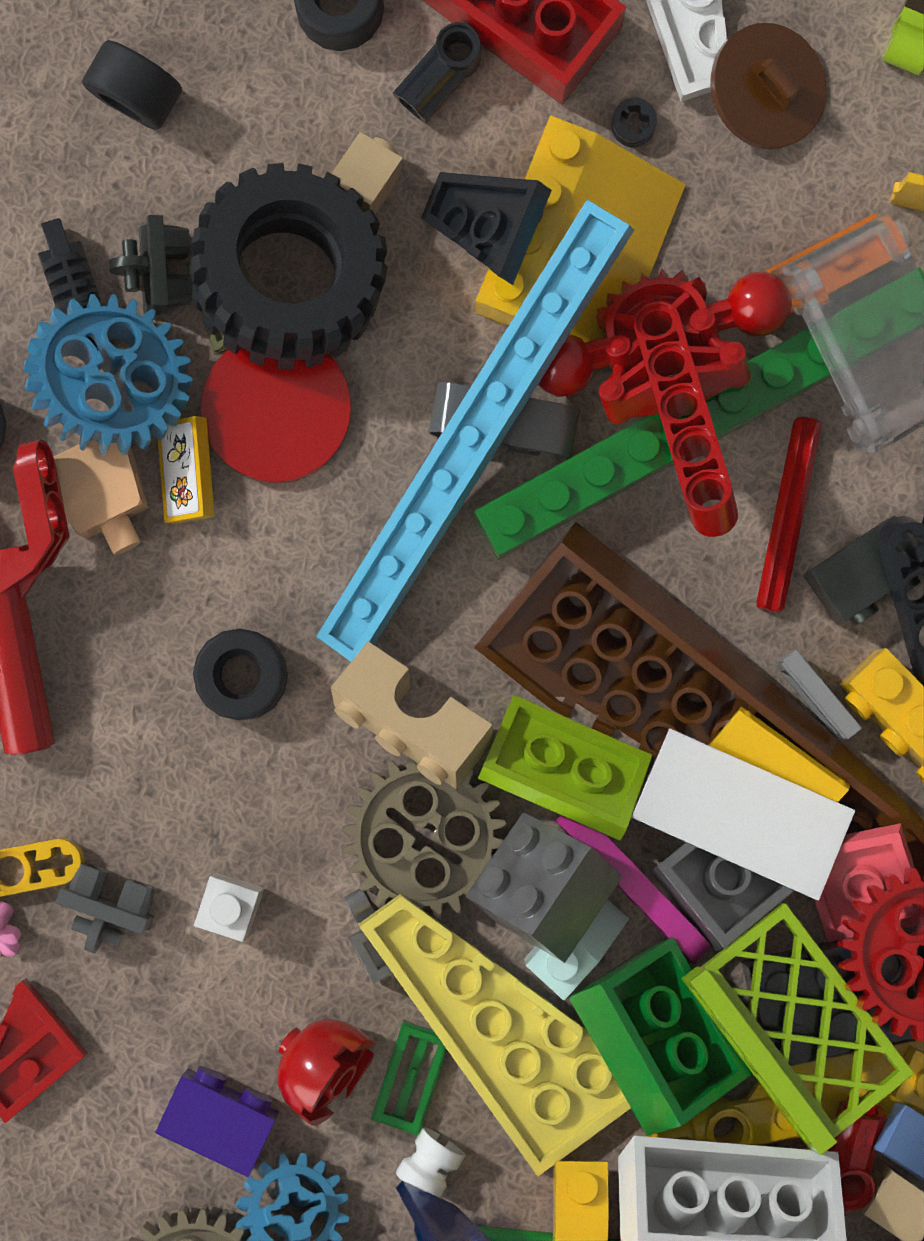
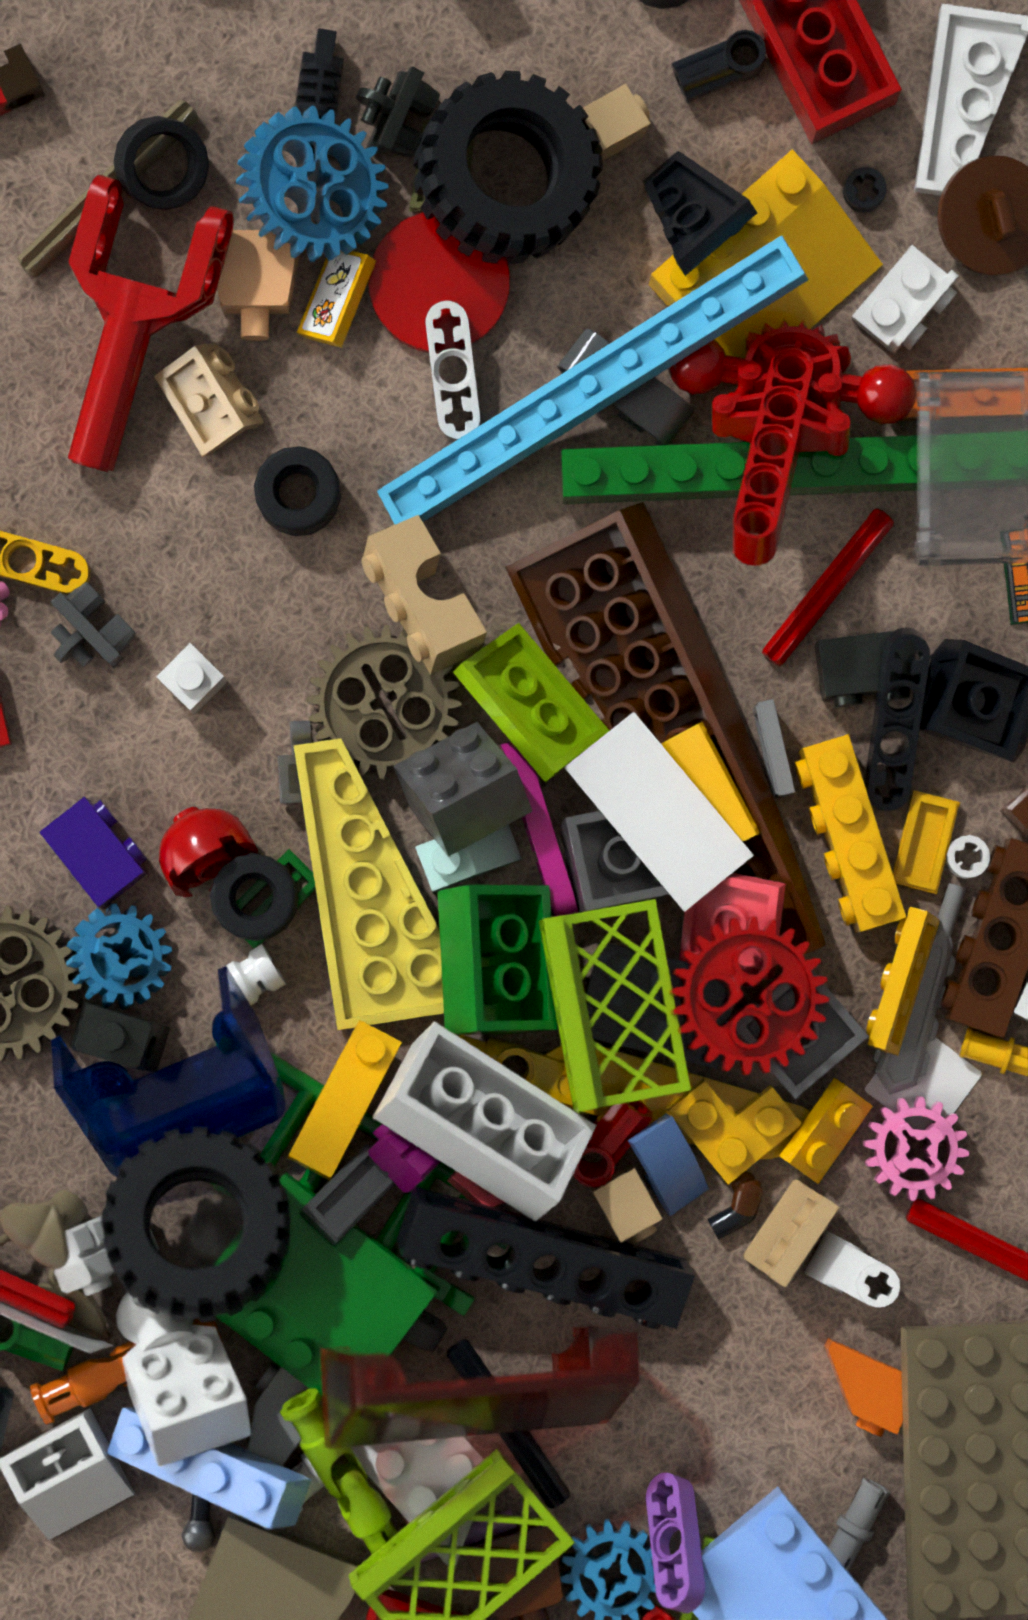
camera: 20 degrees right, 0 degrees up
(111, 626) = (209, 397): none -> tan bracket
(361, 509) = (459, 332): none -> white beam
(401, 1123) = (225, 890): none -> black tyre
(725, 206) = (904, 299): none -> white bracket

